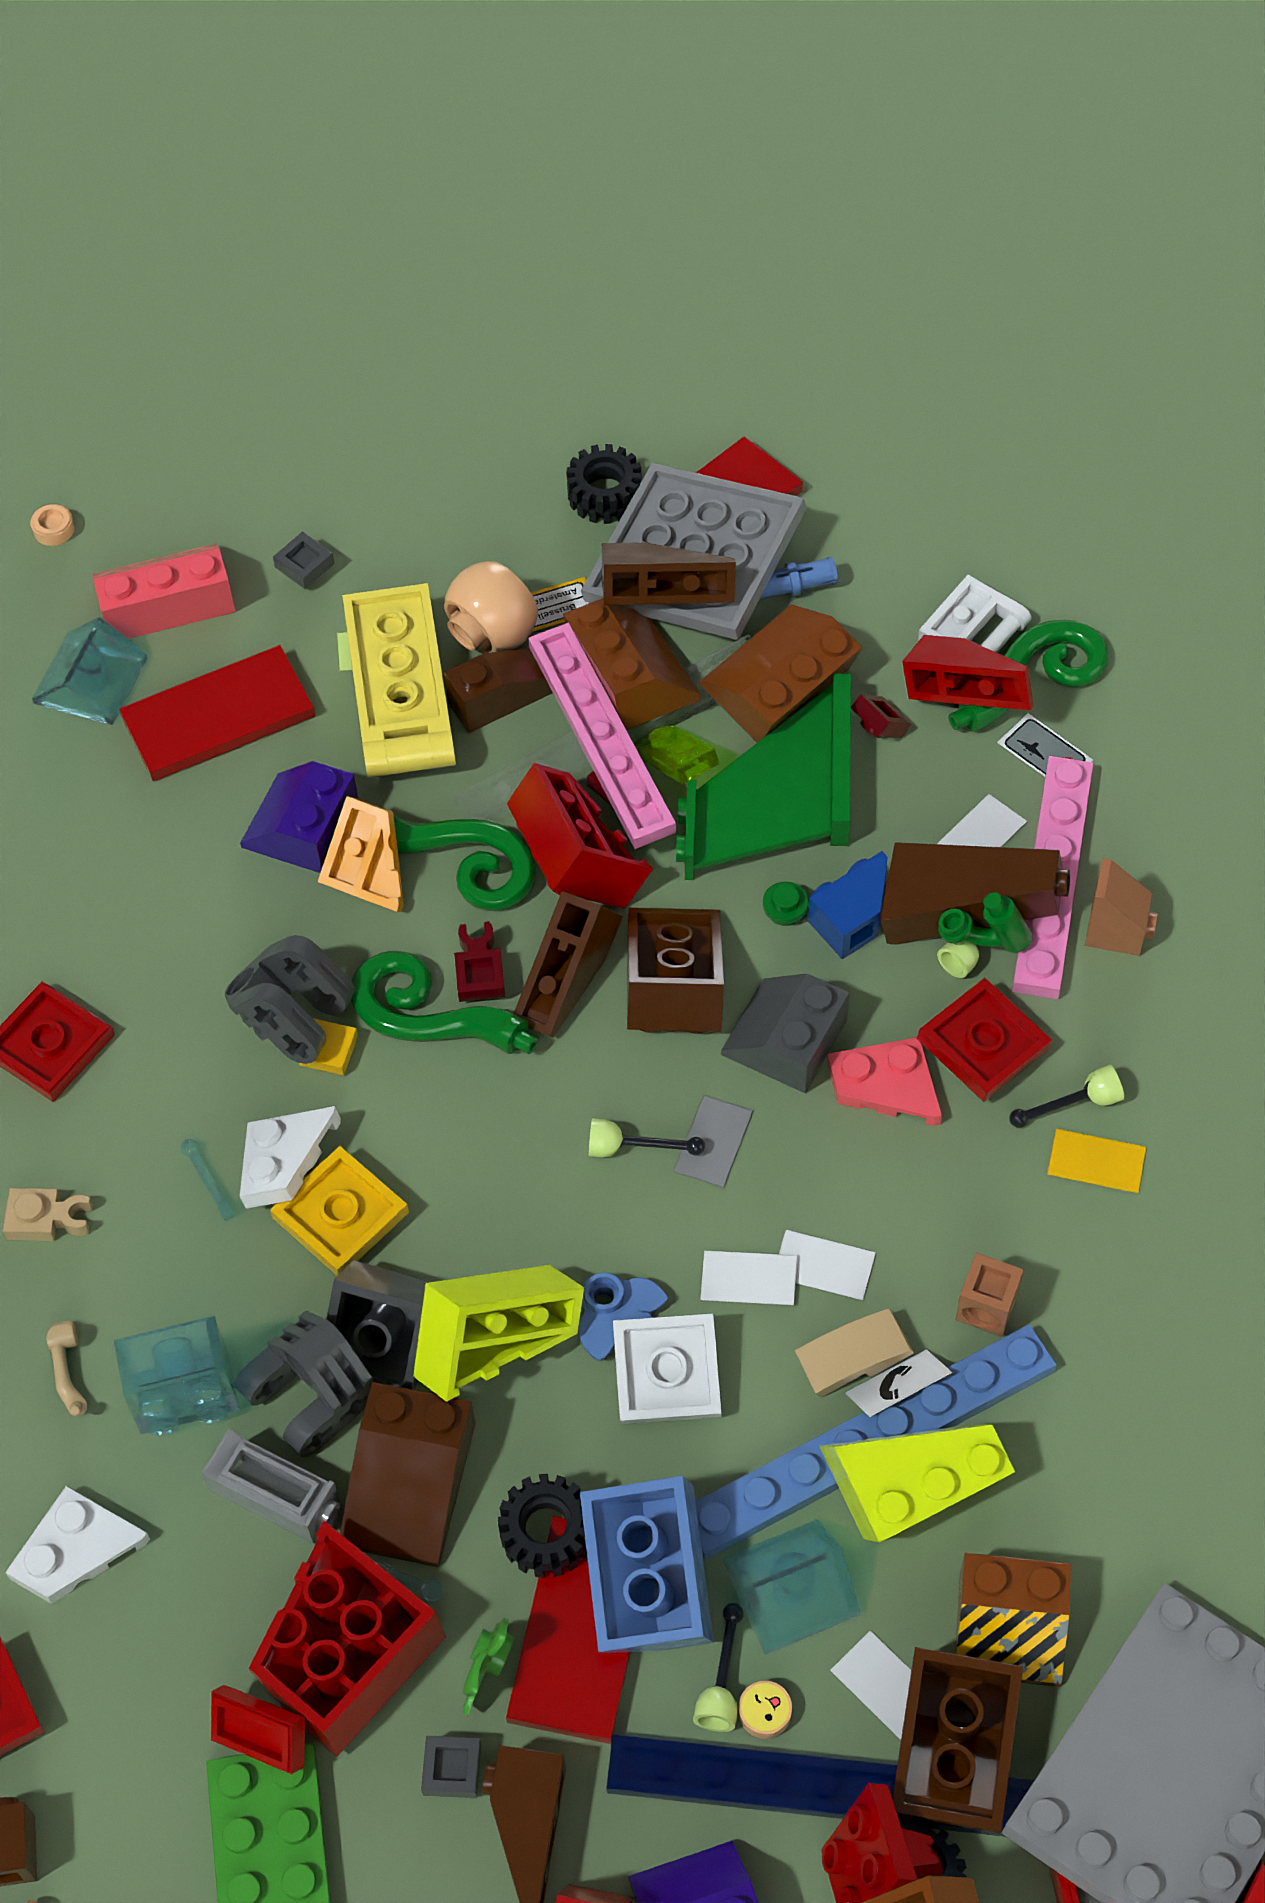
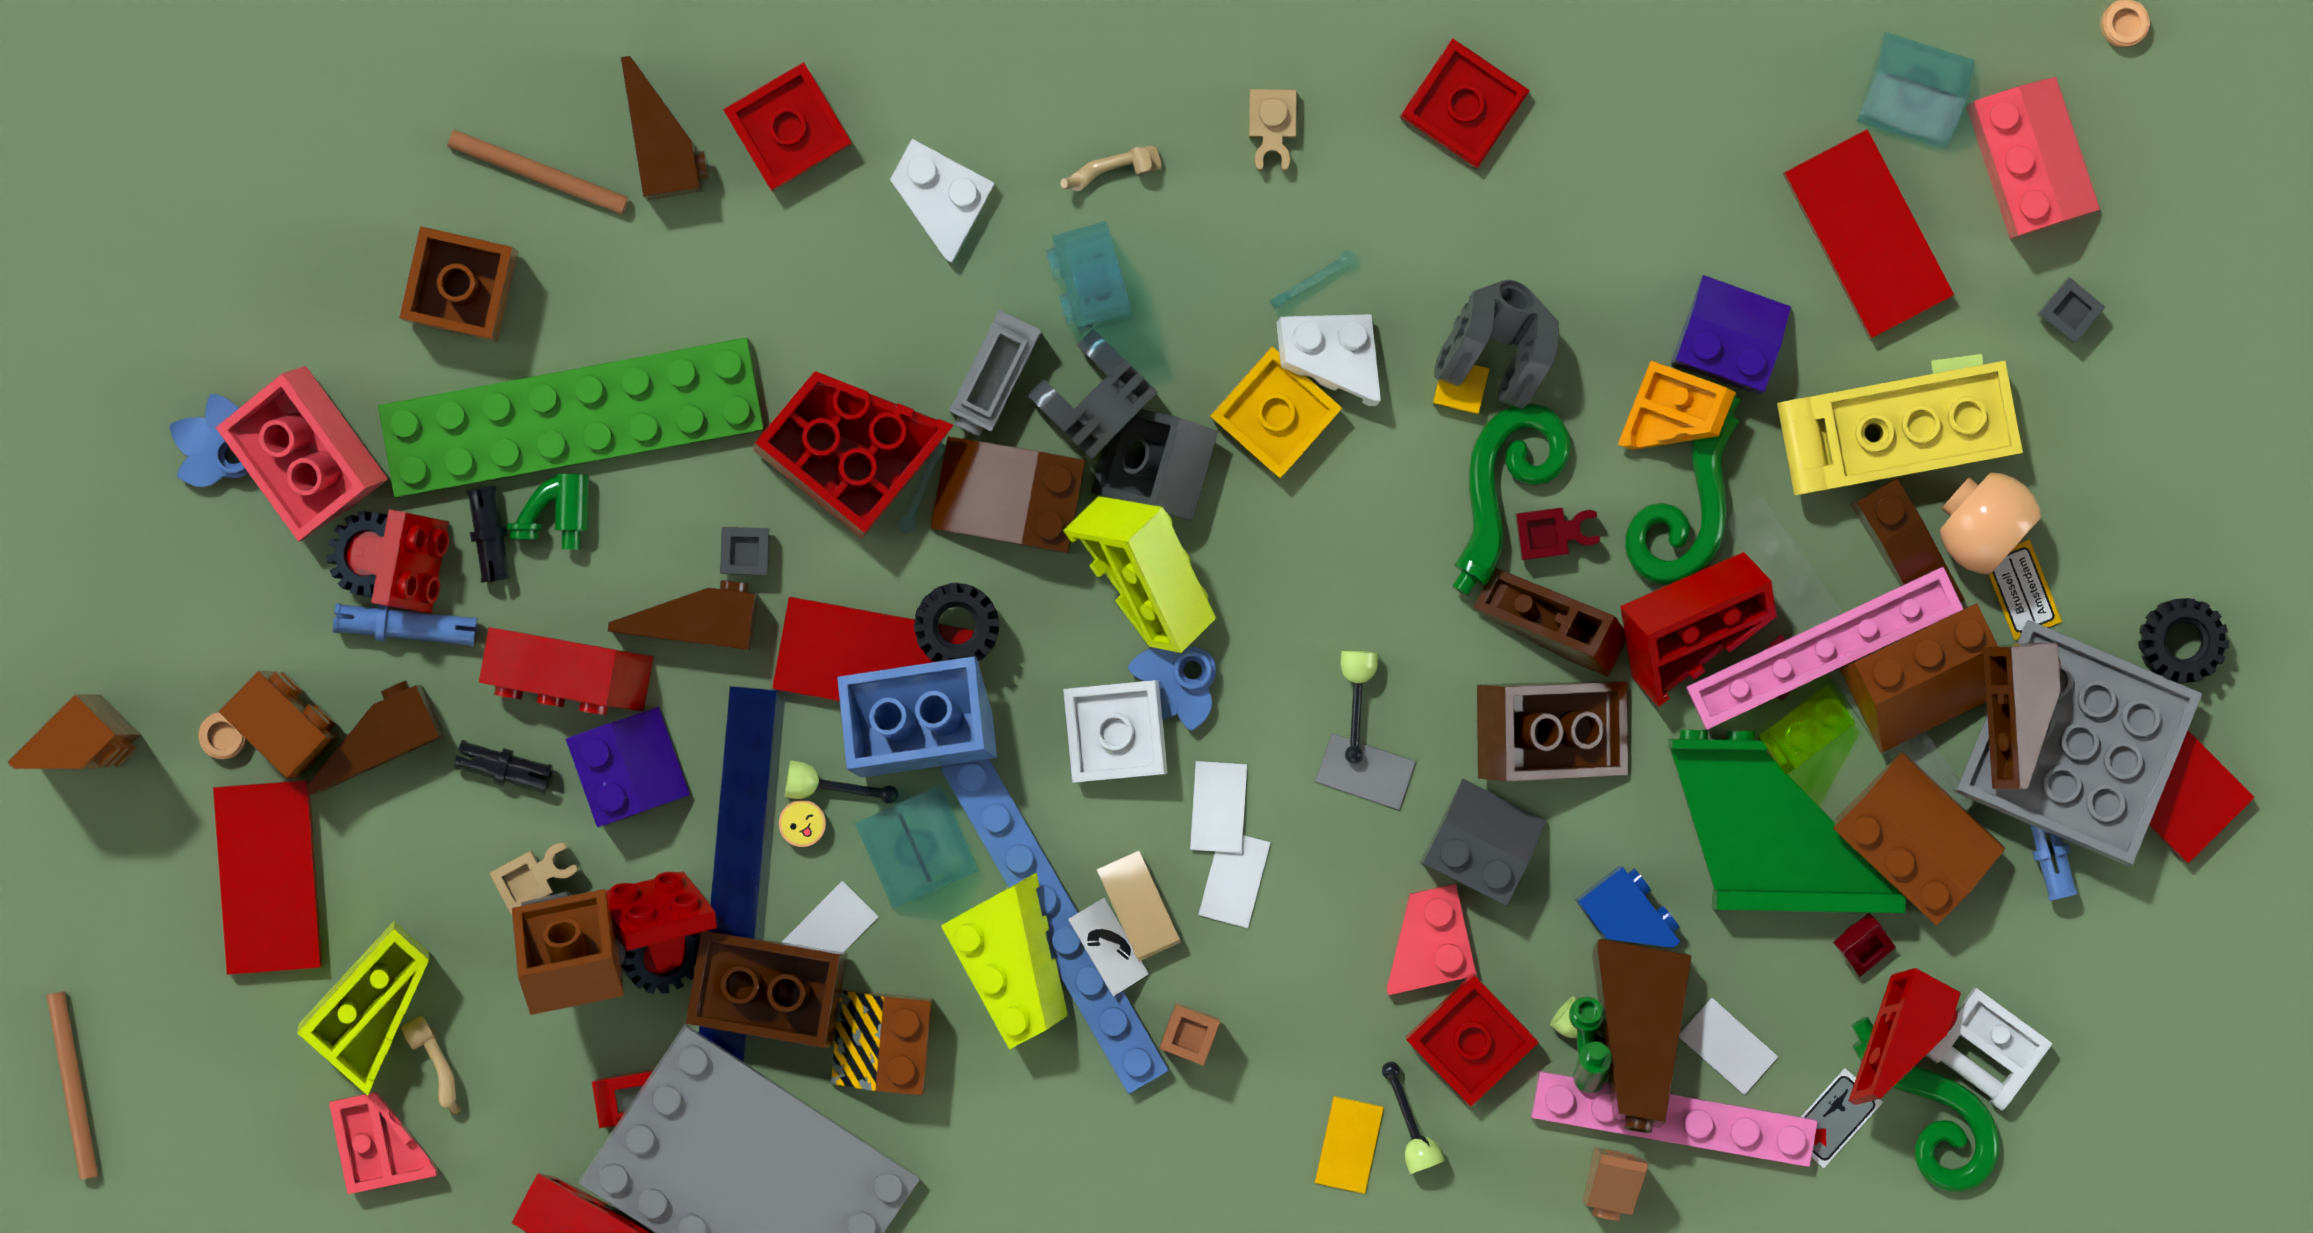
camera: 85 degrees right, 30 degrees up
(257, 1729) = (767, 381): red tile -> none
(488, 1656) = (844, 581): bright green plate -> none
(785, 903) = (1633, 842): green plate -> none

